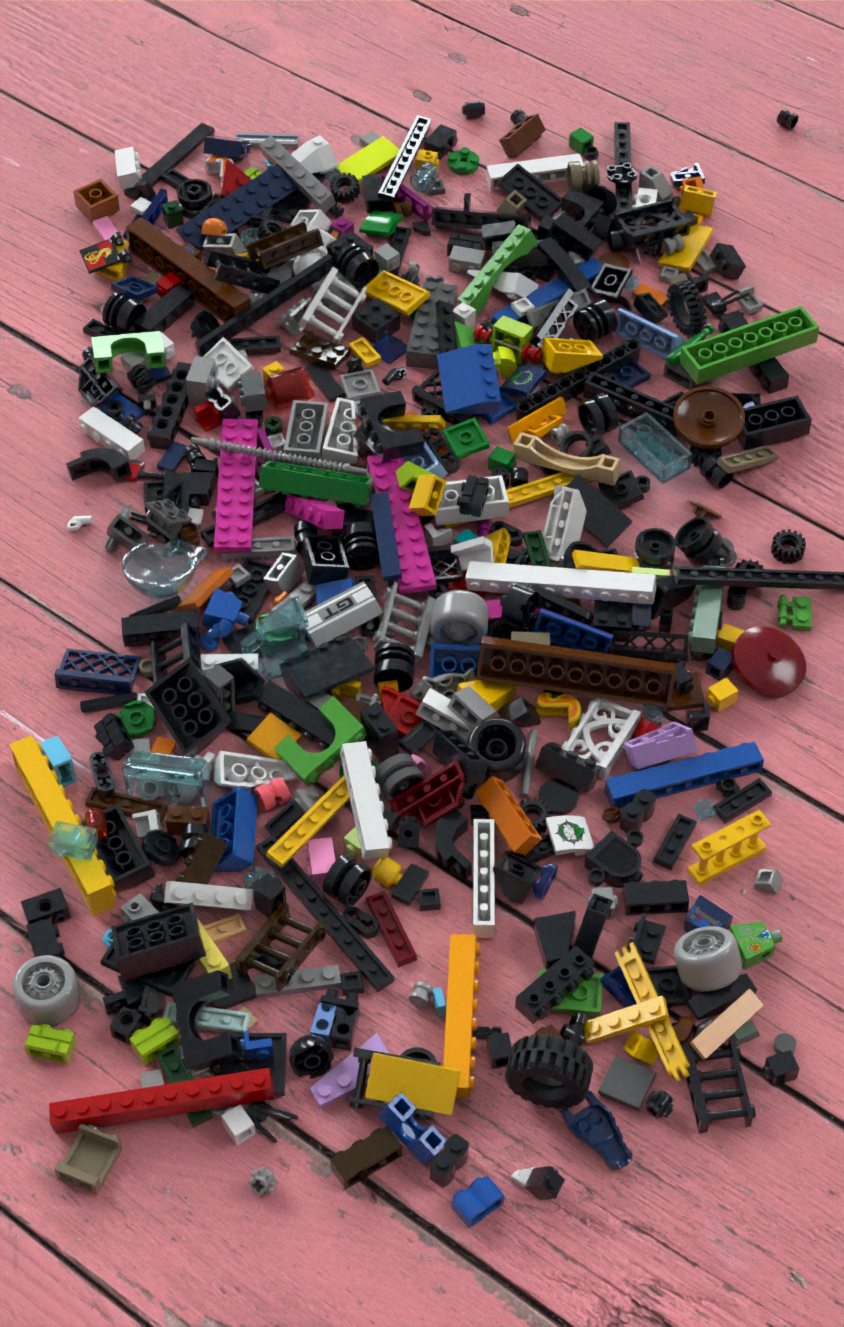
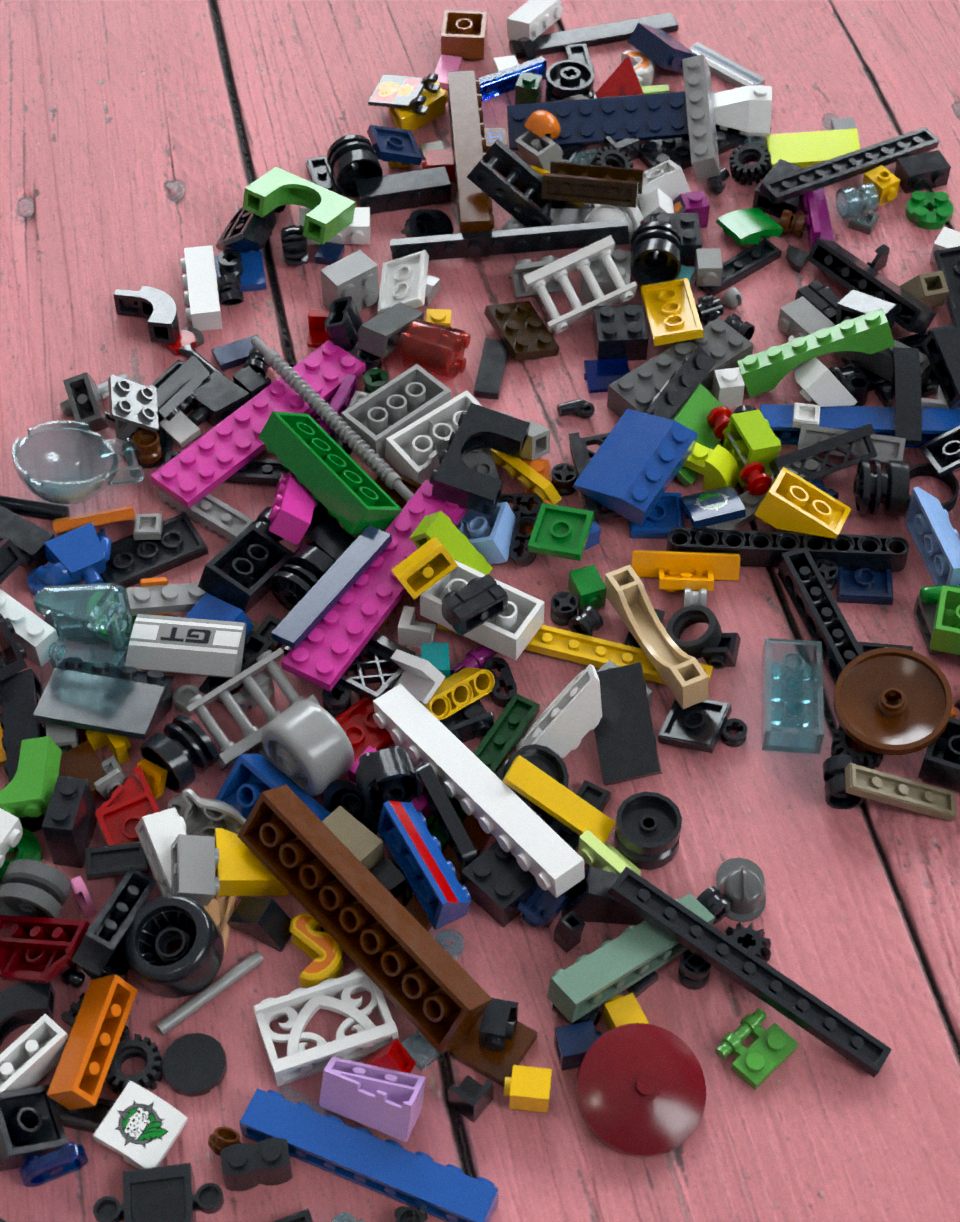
camera: 40 degrees right, 0 degrees up
(77, 521) = (67, 360): white arm -> none
(147, 403) = (275, 277): black tile -> none
(172, 409) = (282, 303): black brick -> none
(257, 345) = (461, 281): black plate -> none
(284, 574) = (189, 556): light grey brick -> none
(352, 362) = (543, 364): black plate -> none
(359, 384) = (526, 397): light grey tile -> none
(365, 351) = (570, 361): yellow plate -> none
(568, 766) = (236, 1035): black brick -> none
(598, 415) = (761, 607): black wheel -> none
(650, 652) = (500, 956): black fence -> none
(698, 540) = (713, 854): black wheel -> none
(705, 511) = (773, 808): medium nougat piece -> none
(791, 539) = (836, 964): black tyre -> none

